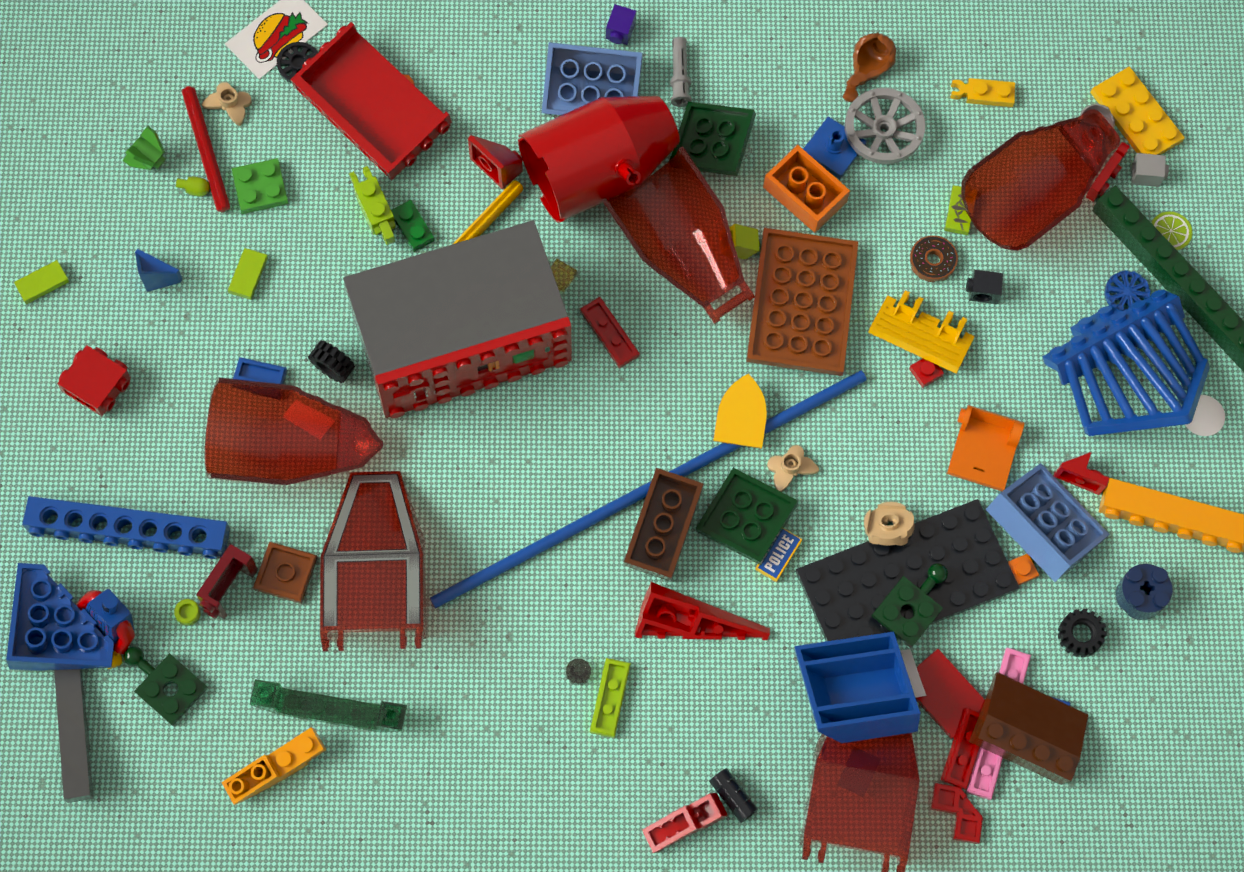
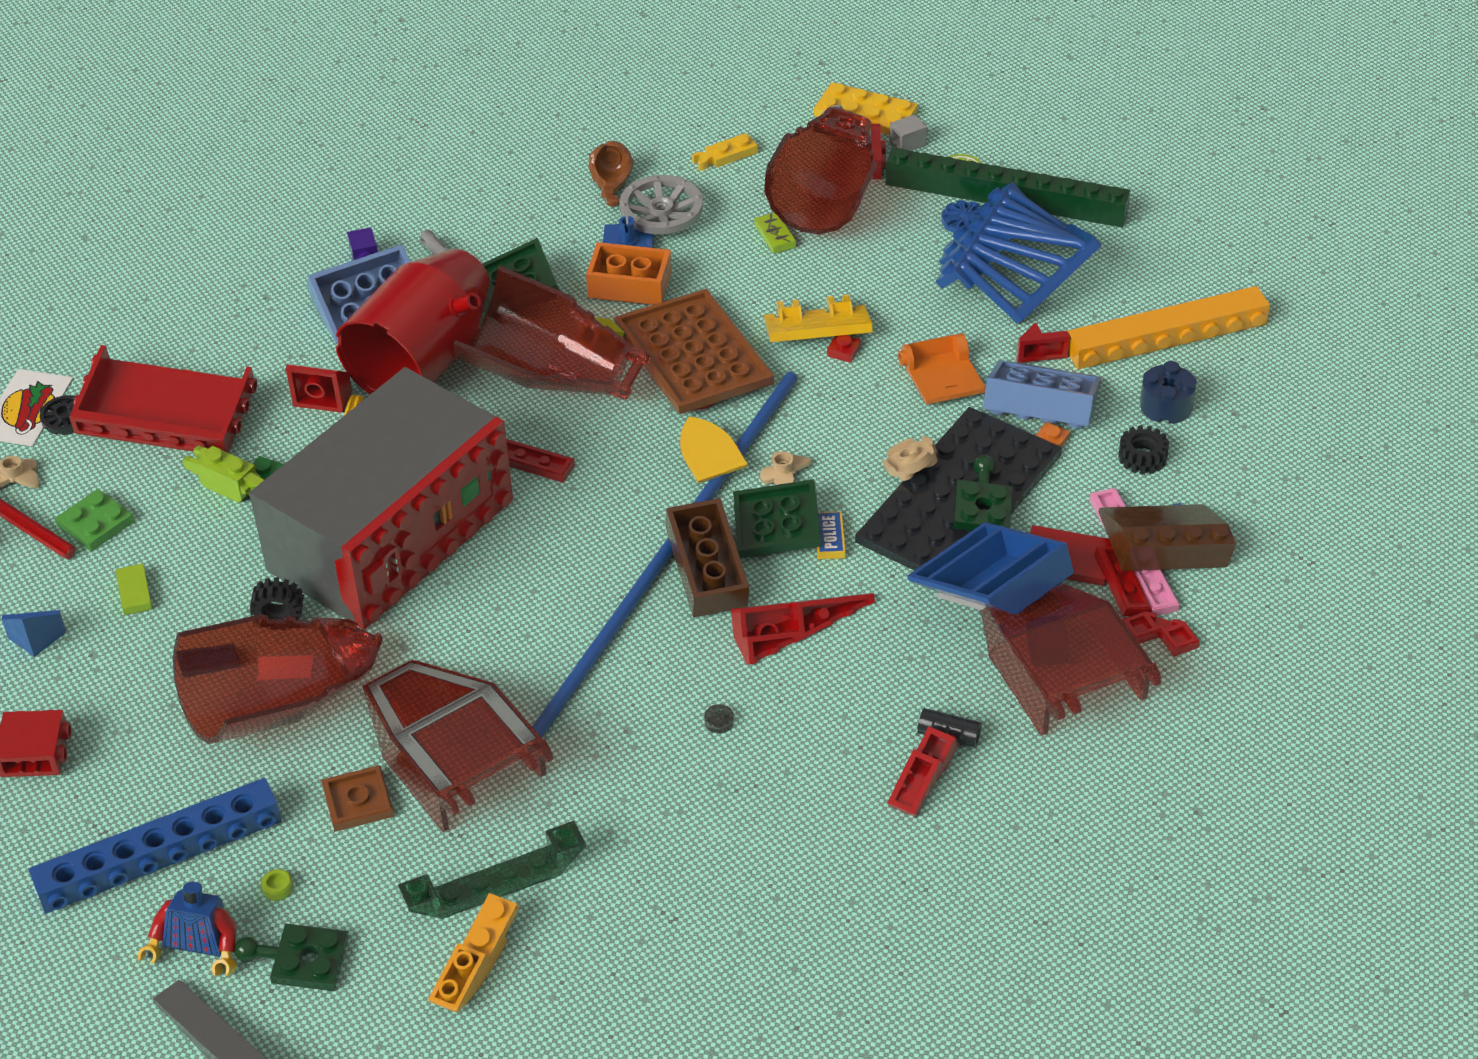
camera: 30 degrees left, 25 degrees down
(50, 628) = (135, 971): blue slope -> none
(194, 186) = (24, 550): lime cylinder -> none
(221, 578) = (302, 807): dark red panel -> none
(610, 698) = (767, 722): lime tile -> none
(940, 247) = (768, 271): tile -> none
(985, 286) = (843, 267): black brick -> none
(1208, 417) = (1102, 266): white sticker -> none

